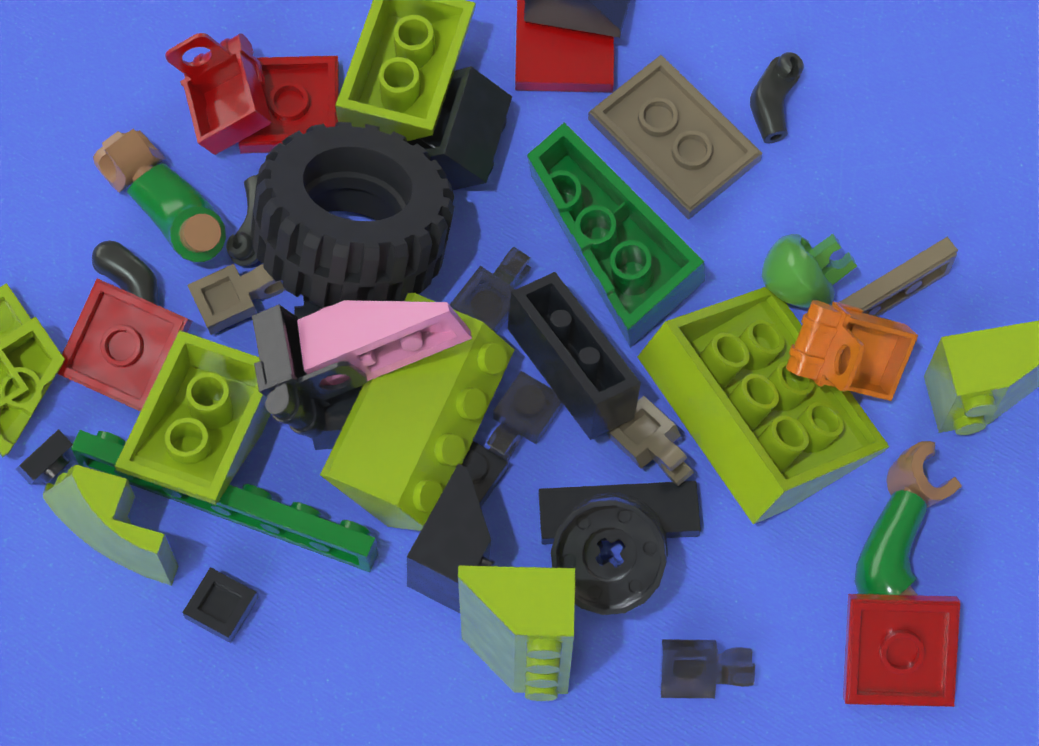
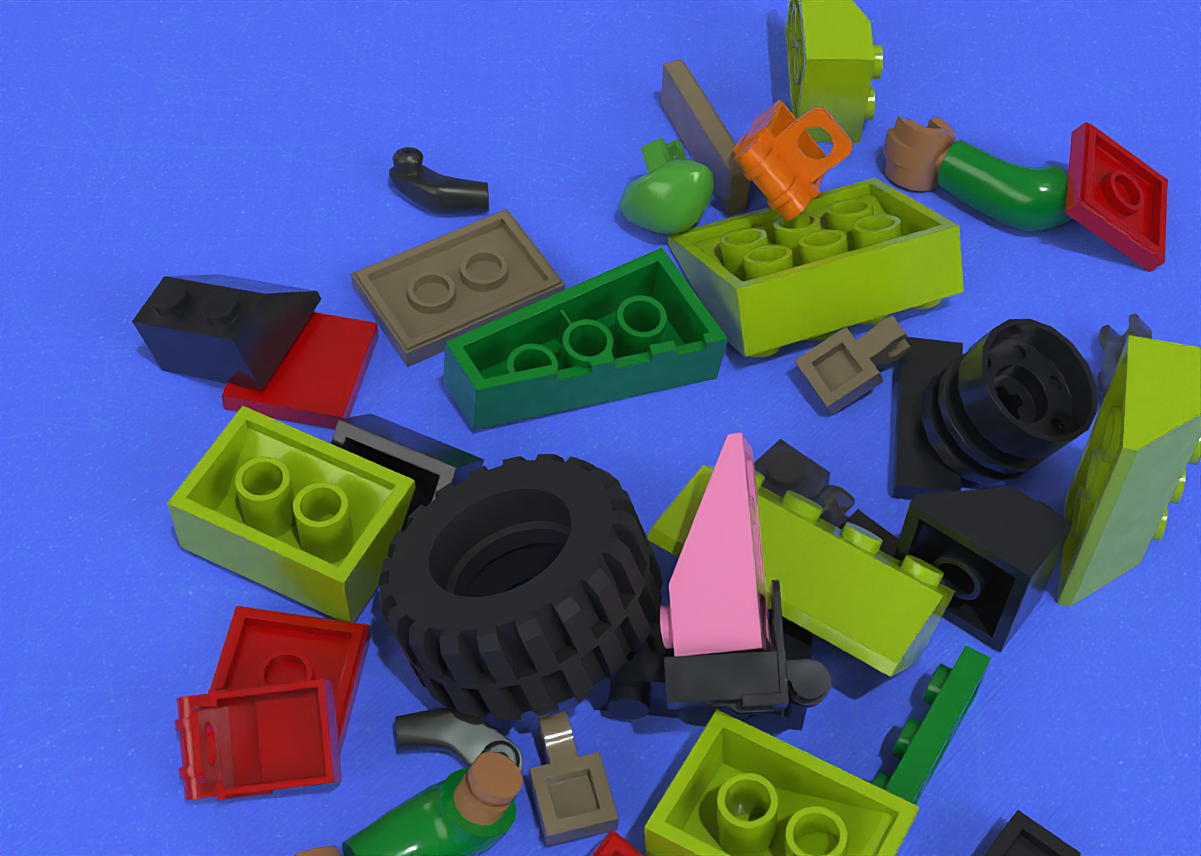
camera: 80 degrees left, 15 degrees down
(488, 294) = (644, 480): clear smoke plate -> none
(573, 355) = (759, 391): black brick -> none

